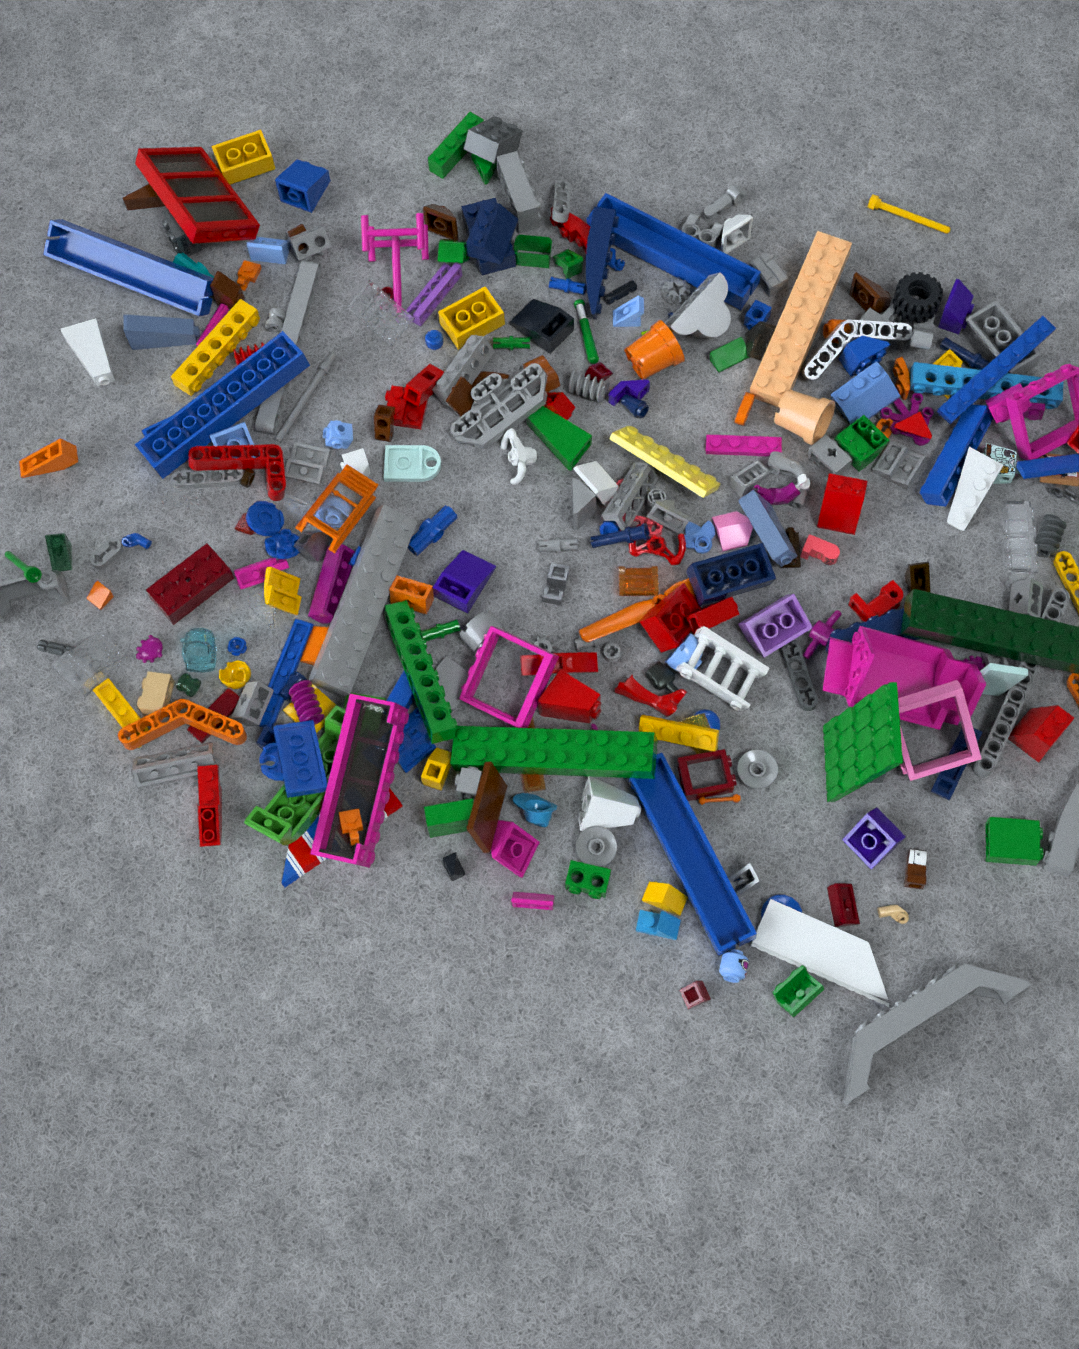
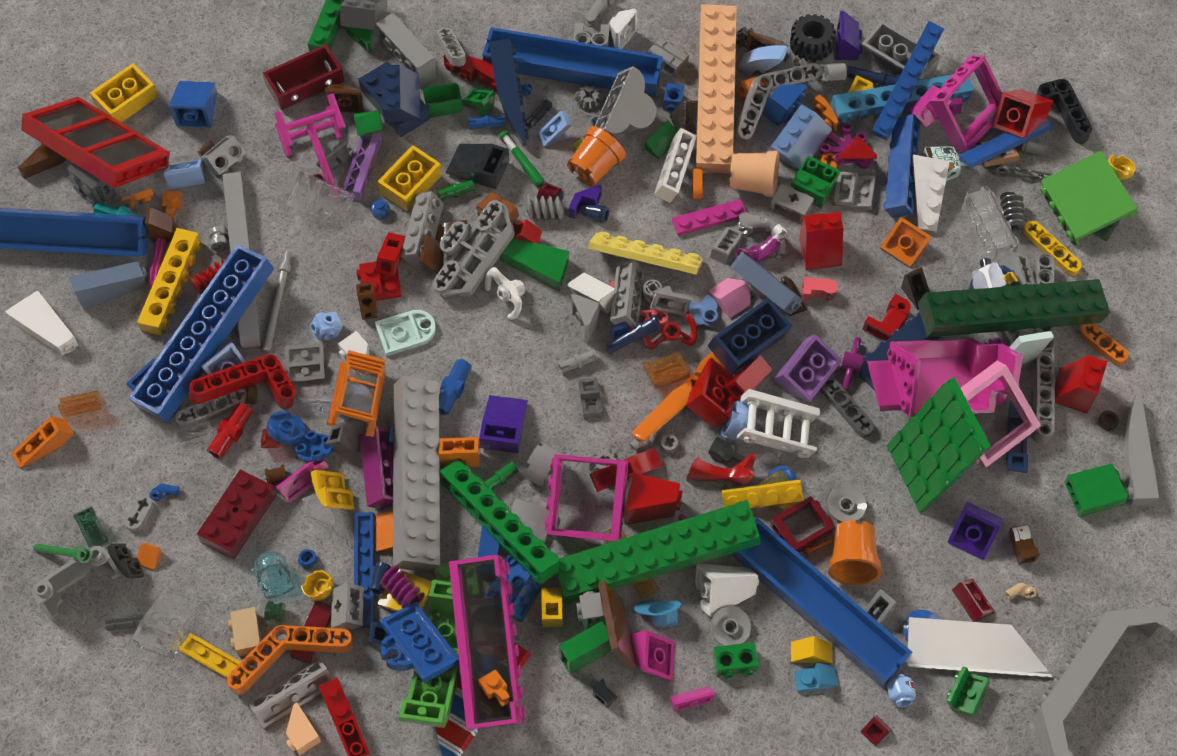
camera: 25 degrees left, 5 degrees down
(76, 593) = (127, 566): none -> pearl dark grey slope
(94, 435) = (80, 404): none -> clear orange panel
(150, 649) = (220, 591): magenta piece -> none
(167, 802) = (300, 732): none -> light nougat slope
(215, 504) = (229, 430): none -> red piece
(223, 260) = (143, 197): none -> orange plate
(239, 559) = (276, 474): none -> reddish brown bush
(397, 187) = (316, 67): none -> dark red piece
(417, 272) = (341, 152): none -> flat silver hinge
(729, 383) = (675, 165): none -> white brick
(742, 820) = (855, 554): none -> orange piece
(847, 279) = (742, 37): none -> black gear
(859, 304) = (762, 59): none -> light blue slope
(927, 532) = (906, 242): none -> orange slope
(998, 594) = (992, 275): none -> torso
(1057, 777) = (1108, 420): none -> dark brown tile

